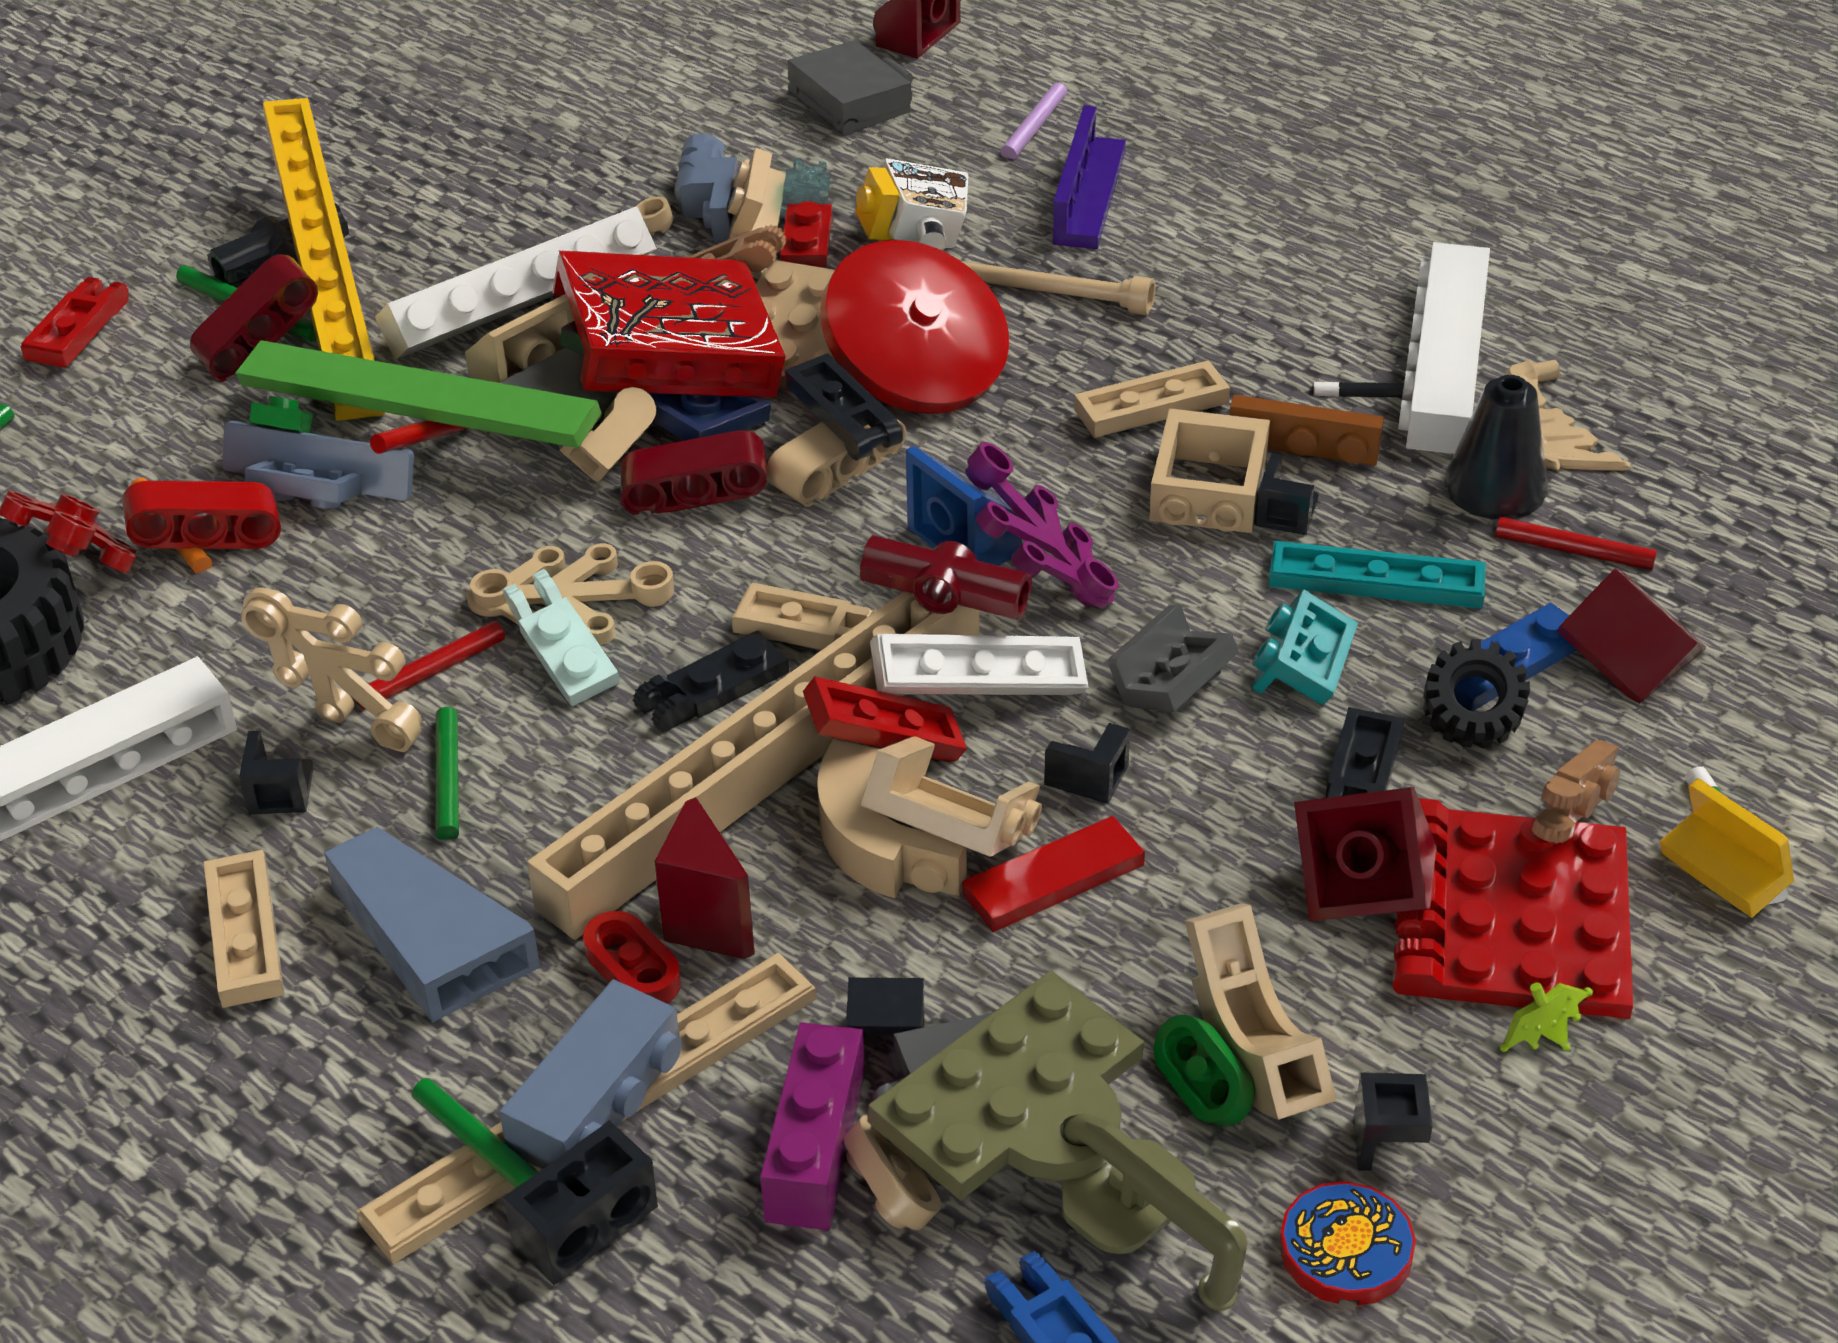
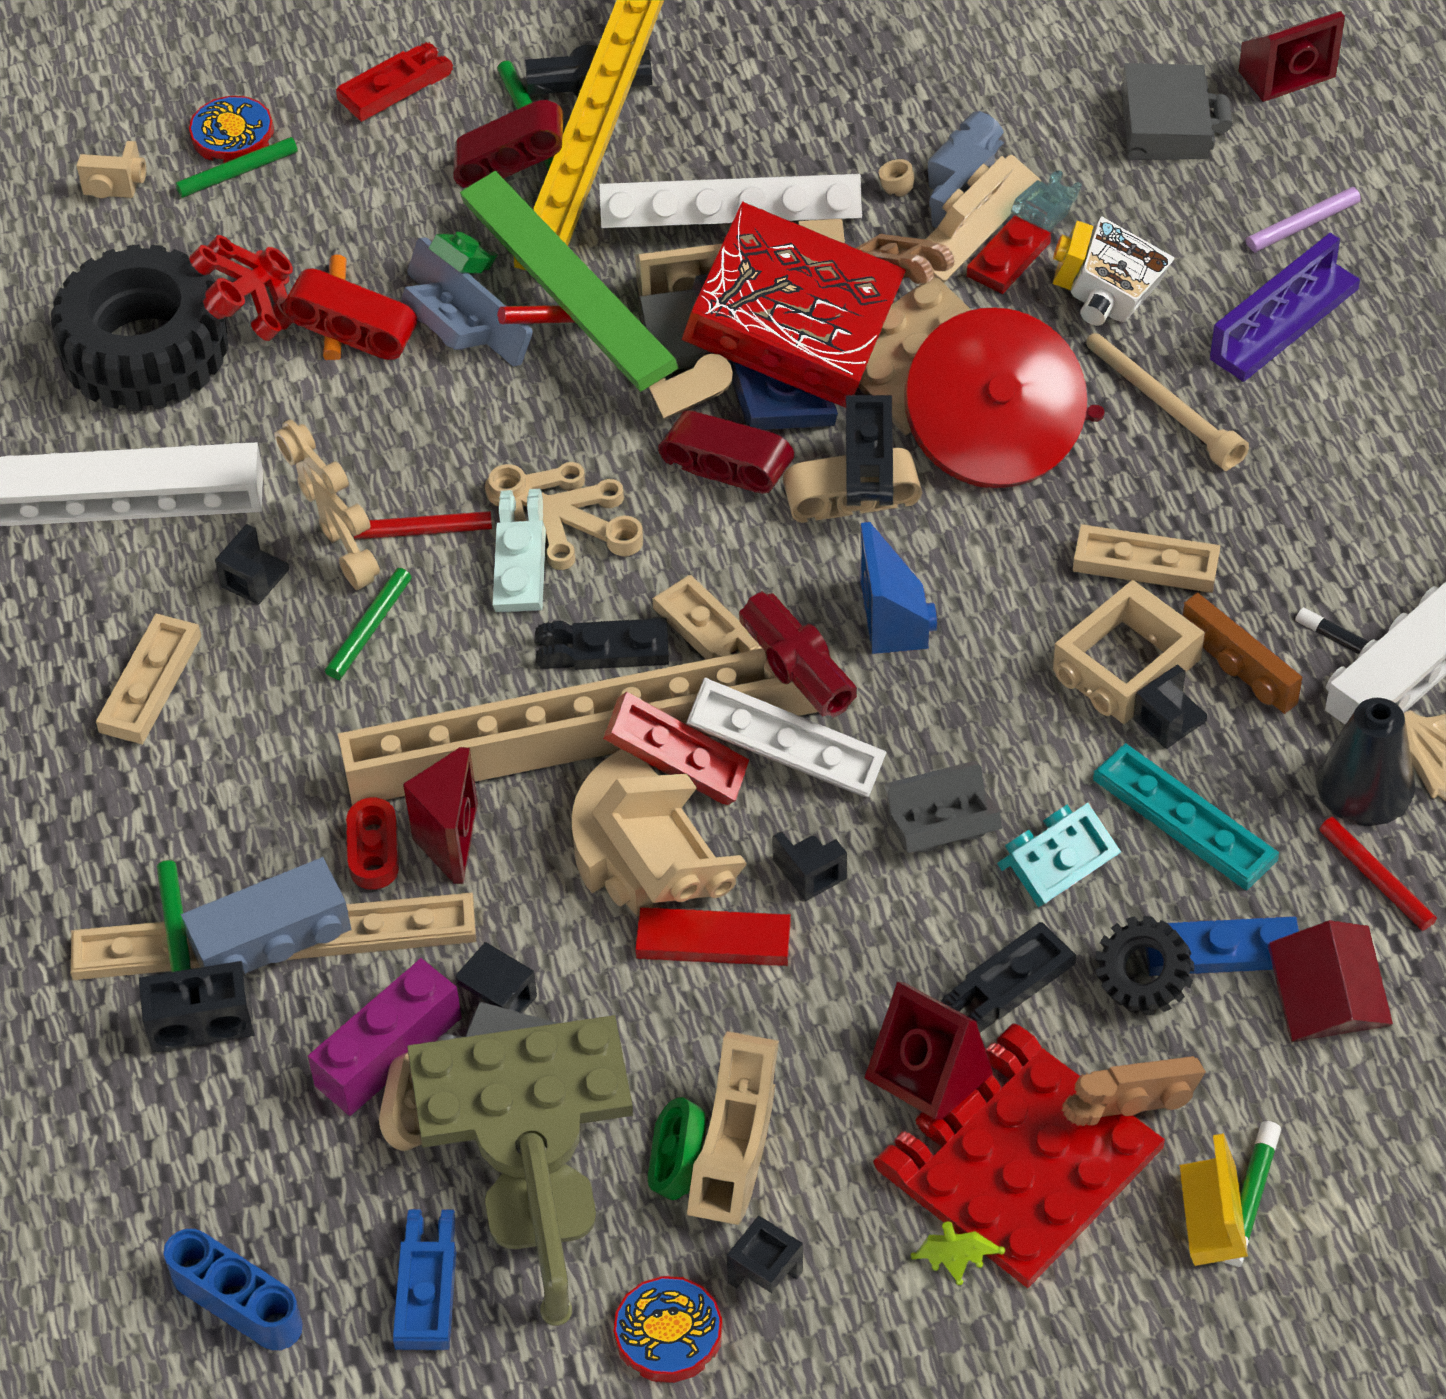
camera: 35 degrees right, 10 degrees up
(428, 924) = (259, 745): sand blue slope -> none
(1040, 526) = (943, 698): magenta plant -> none

